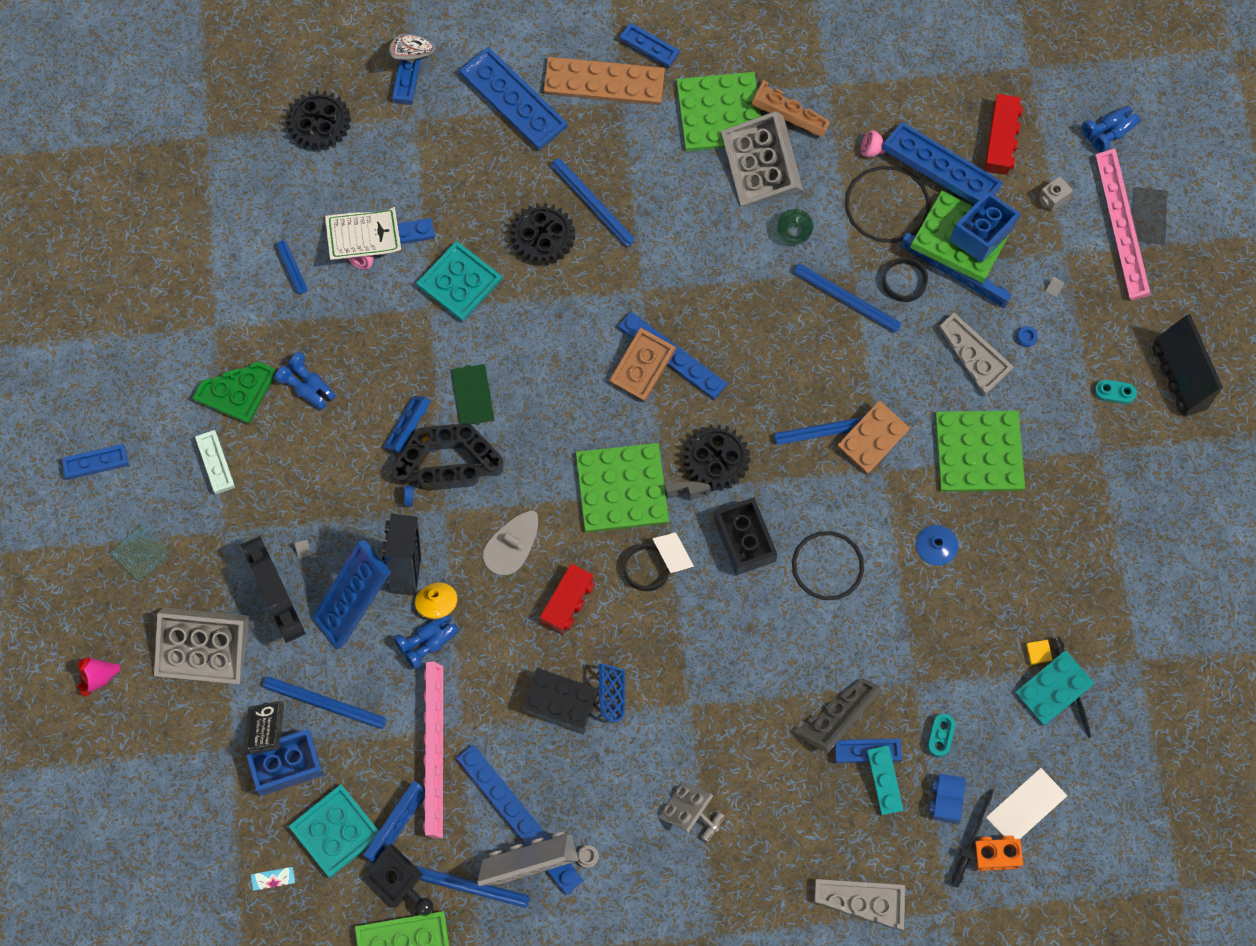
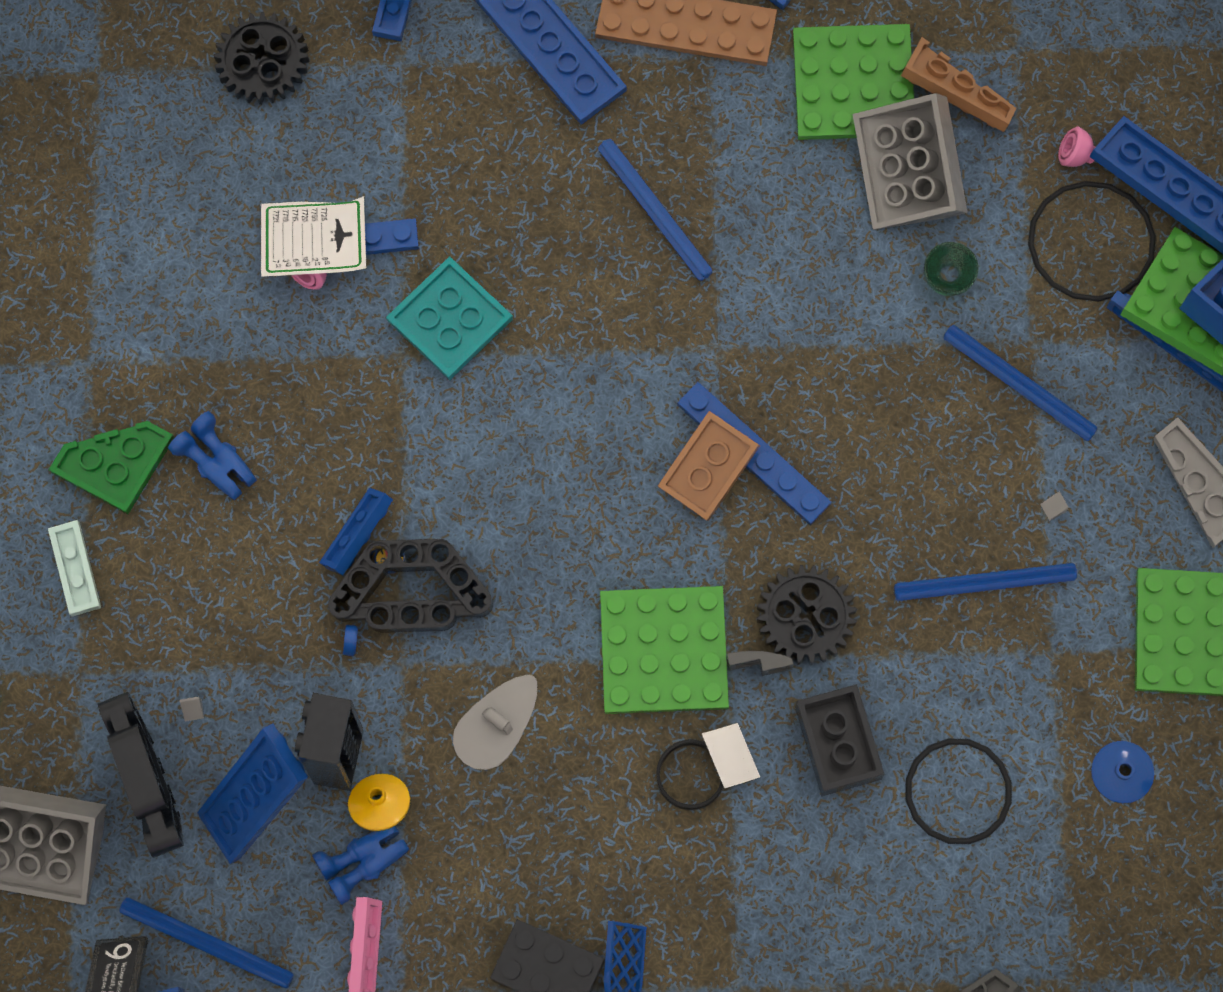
camera: 10 degrees right, 5 degrees up
(291, 267) = (206, 279): blue axle -> none
(473, 394) = (456, 492): dark green piece -> none
(527, 224) = (555, 239): black gear -> none
(567, 599) = (571, 815): red brick -> none
(873, 437) = (1041, 601): medium nougat plate -> none
(877, 376) = (1054, 506): none -> light grey piece
(905, 260) = (1108, 331): black tyre -> none

